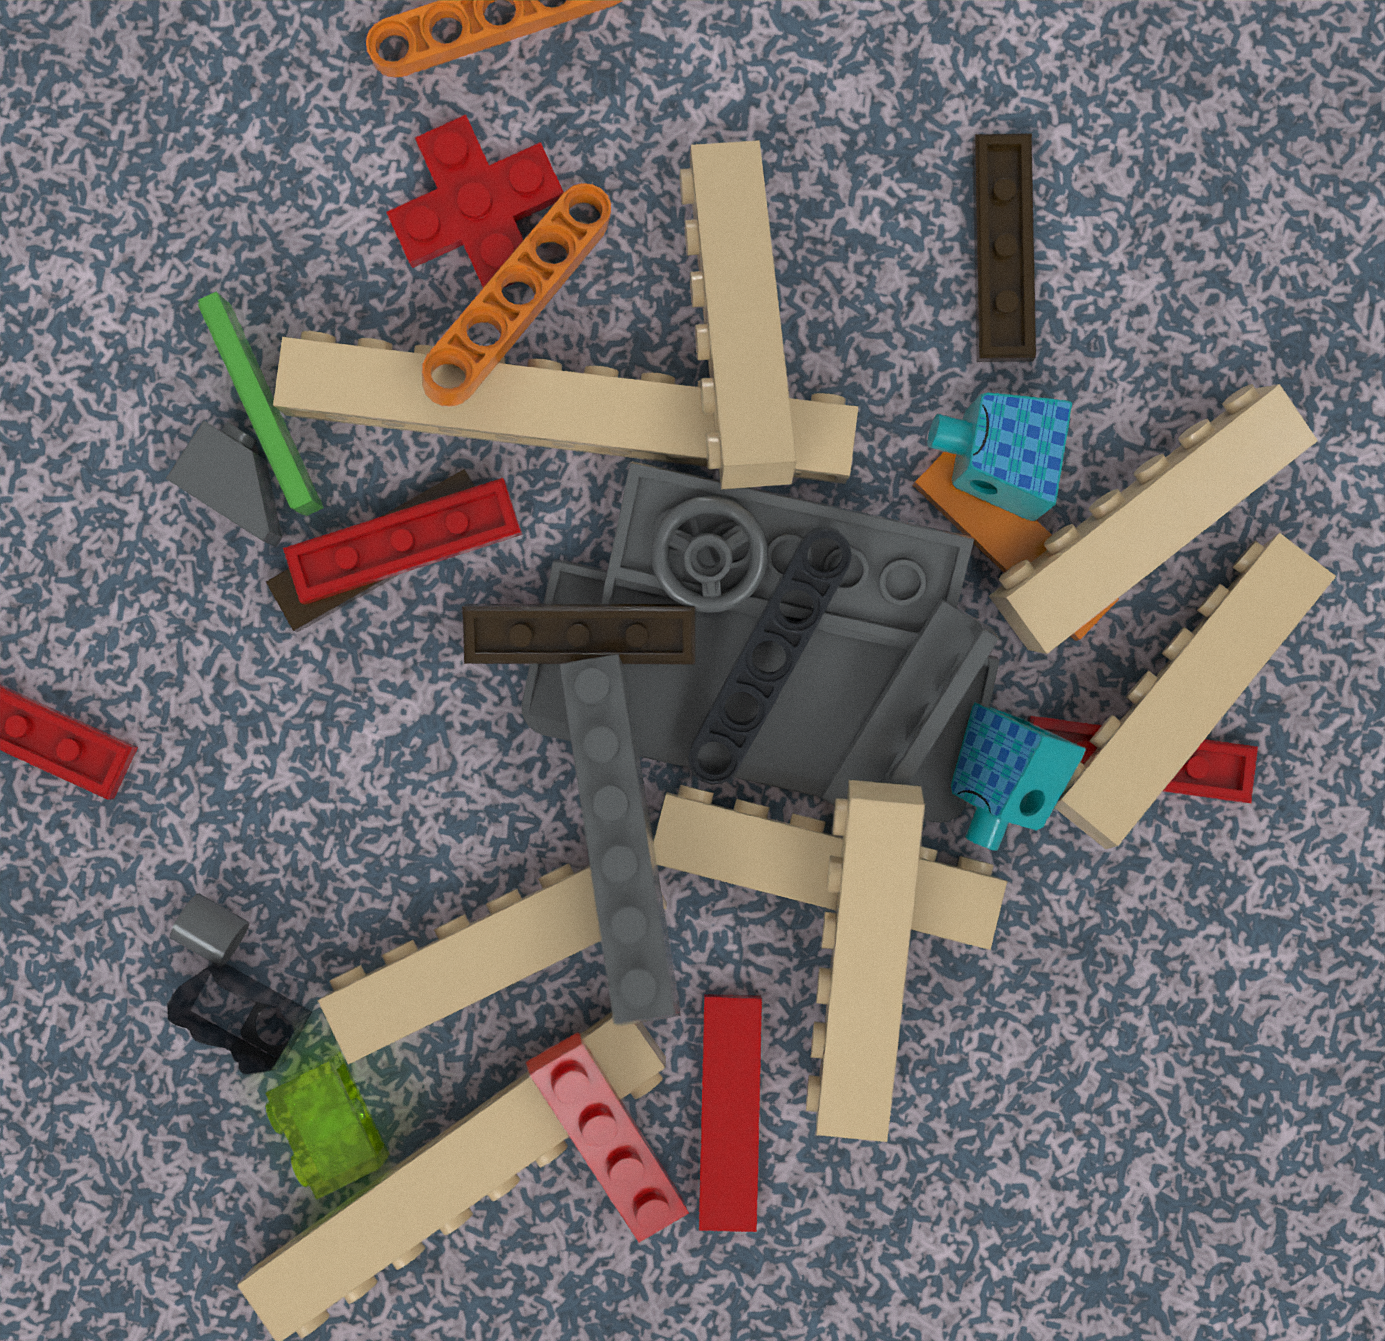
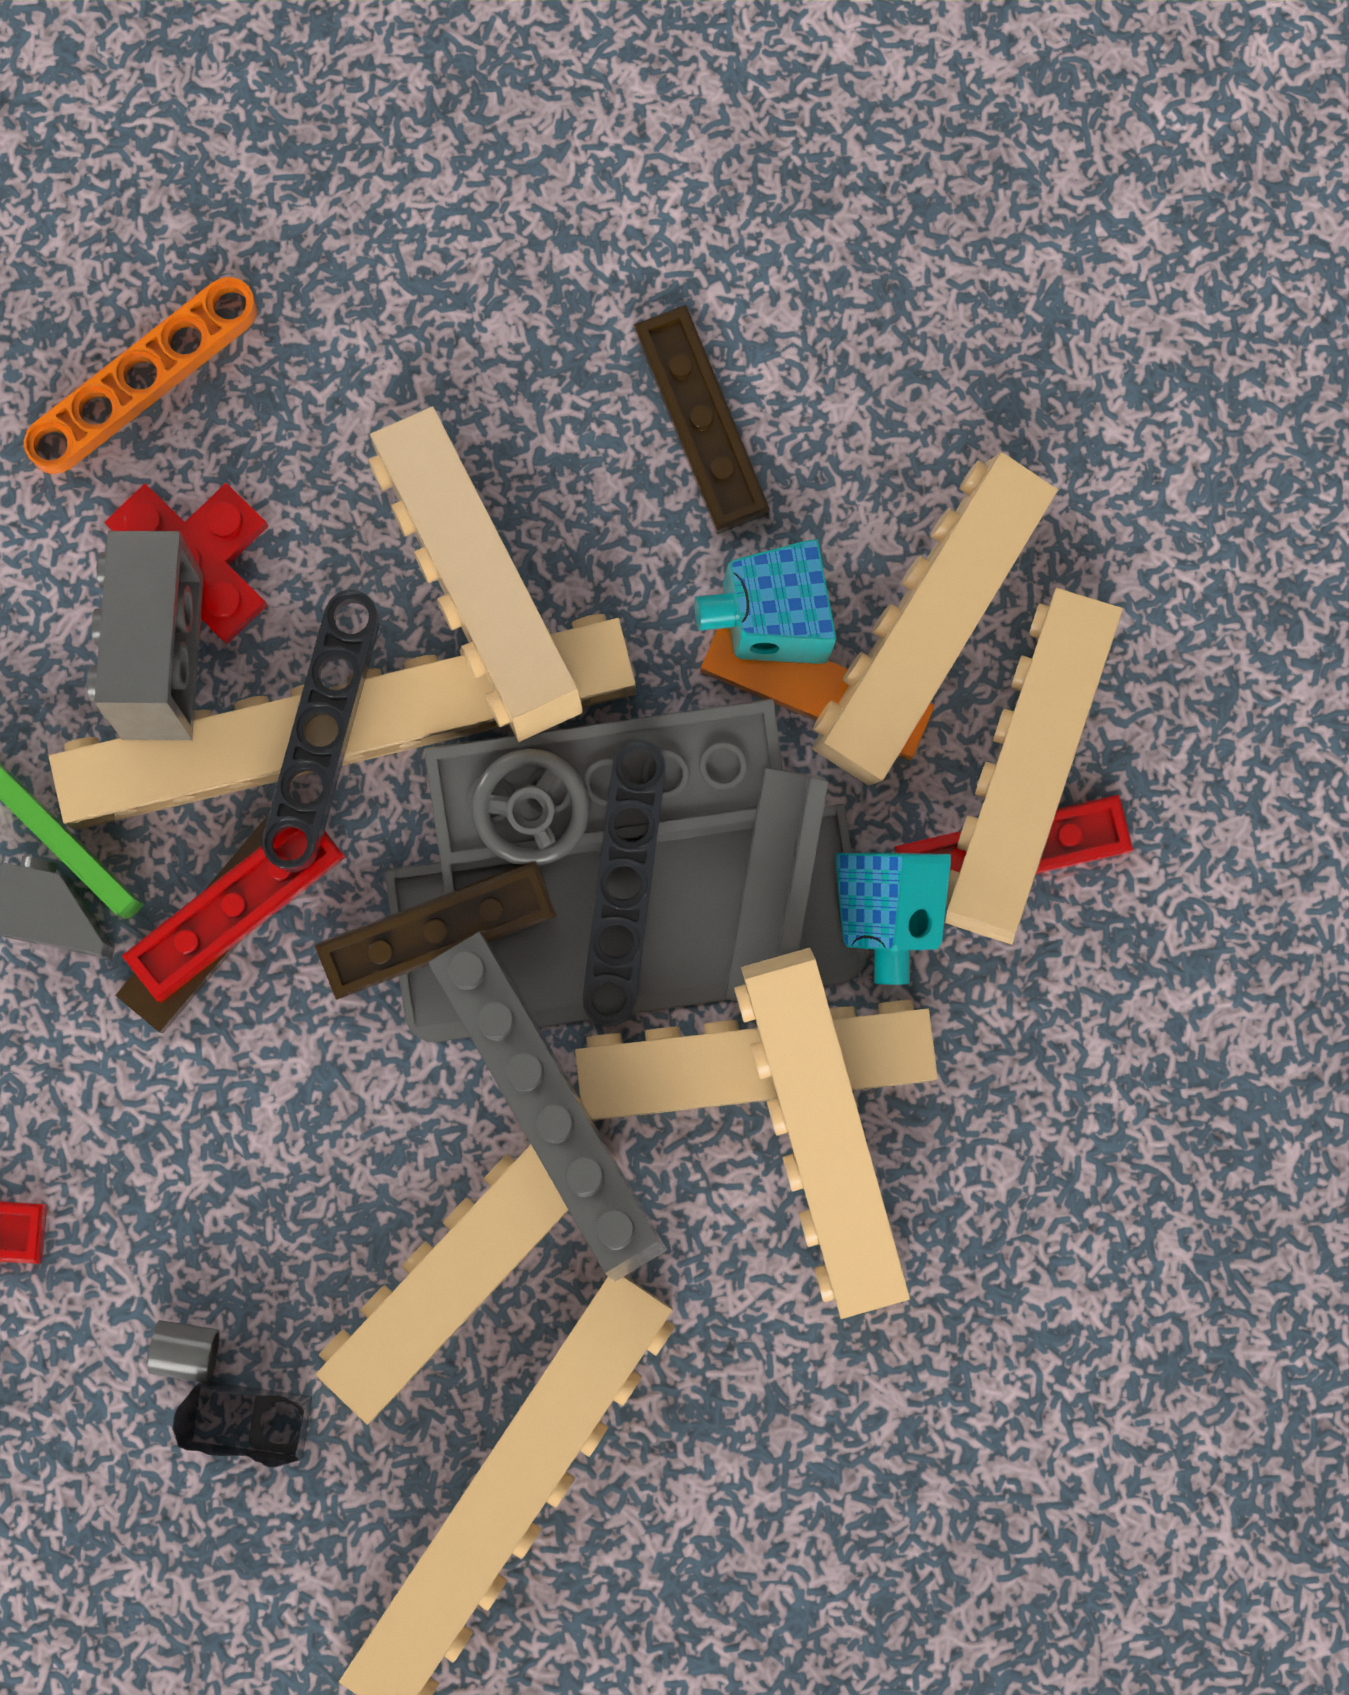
camera: 25 degrees left, 5 degrees down
(326, 1126) = (366, 1498): clear neon green brick -> none
(411, 256) = (147, 635): none -> dark grey brick
(511, 318) = (256, 657): orange beam -> none
(549, 380) = (317, 701): none -> black beam
(607, 1136) = (643, 1398): plate -> none
(730, 1113) = (754, 1336): red tile -> none

